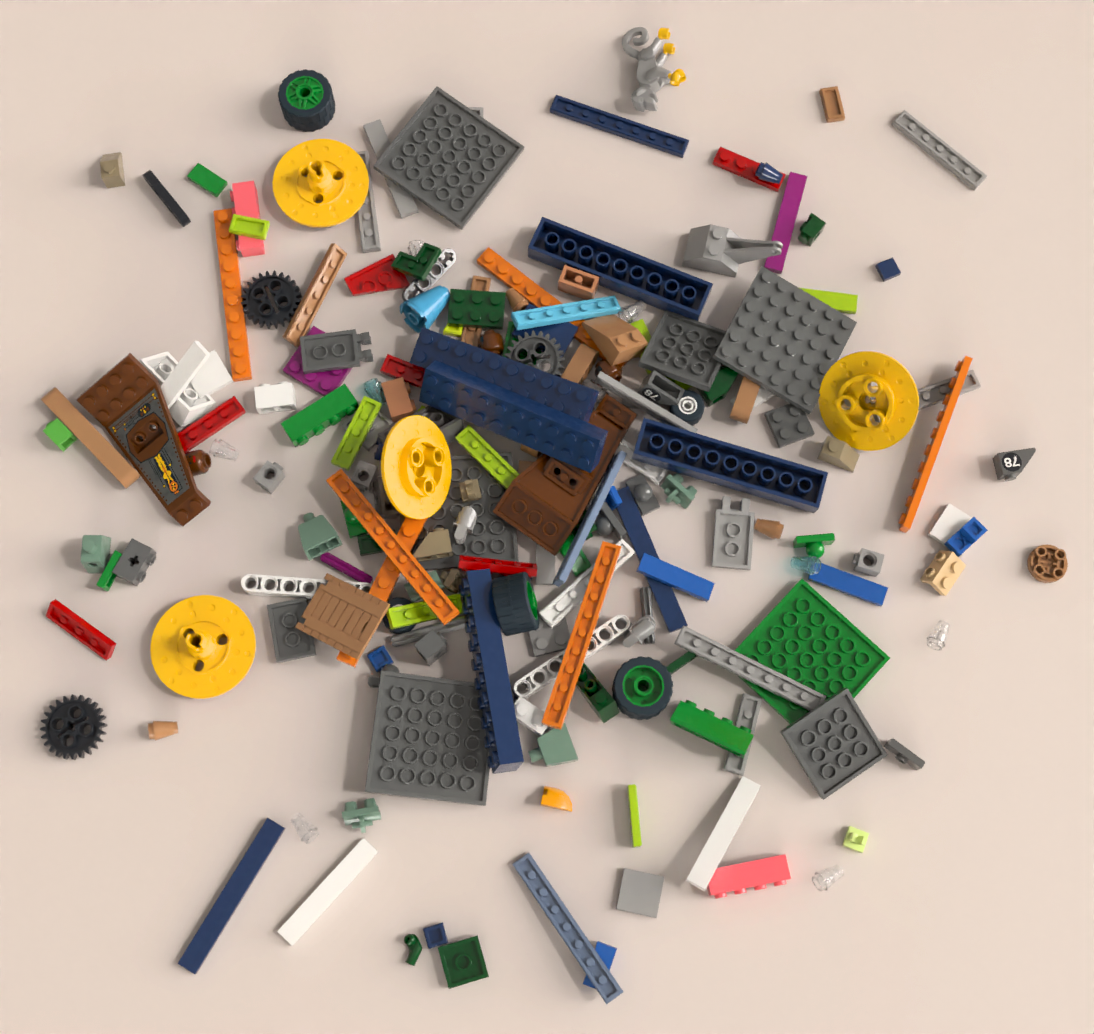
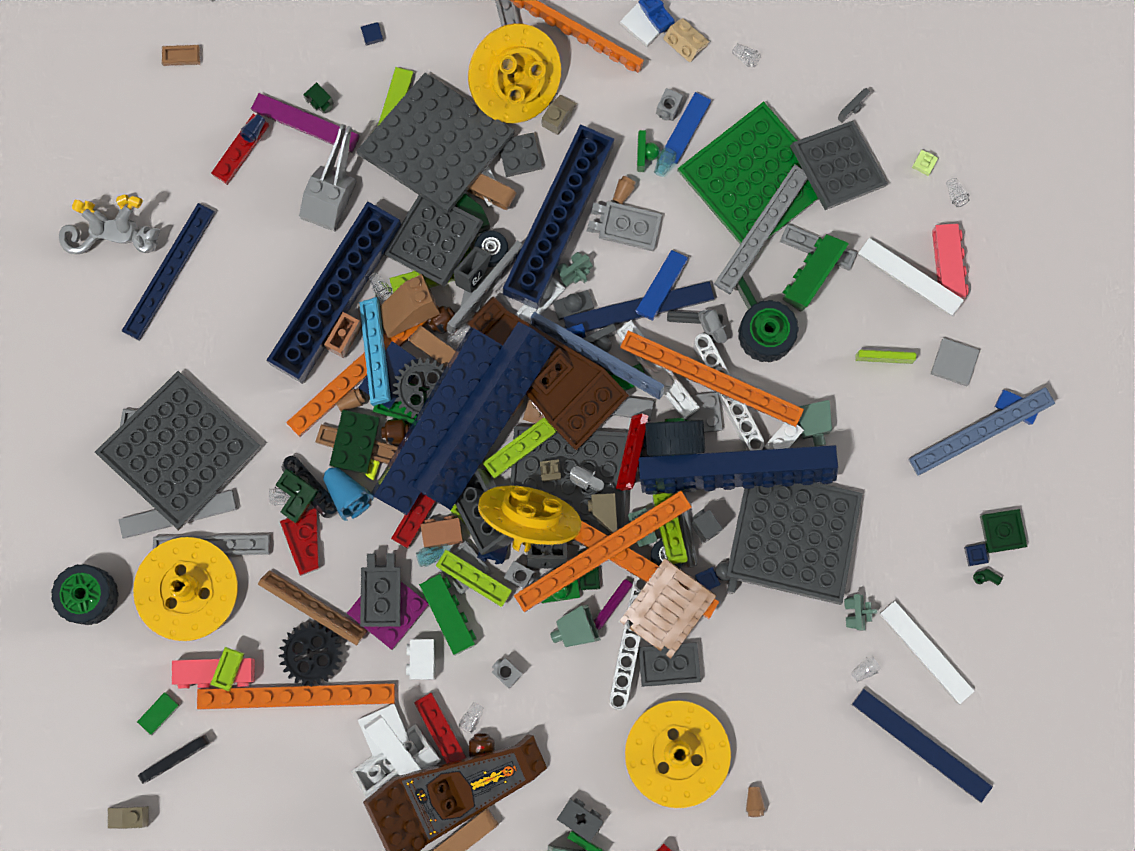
camera: 80 degrees left, 5 degrees up
(452, 580) = (639, 499): dark tan tile -> none
(556, 799) = (861, 428): light orange brick -> none
(596, 695) = (770, 374): dark green slope -> none

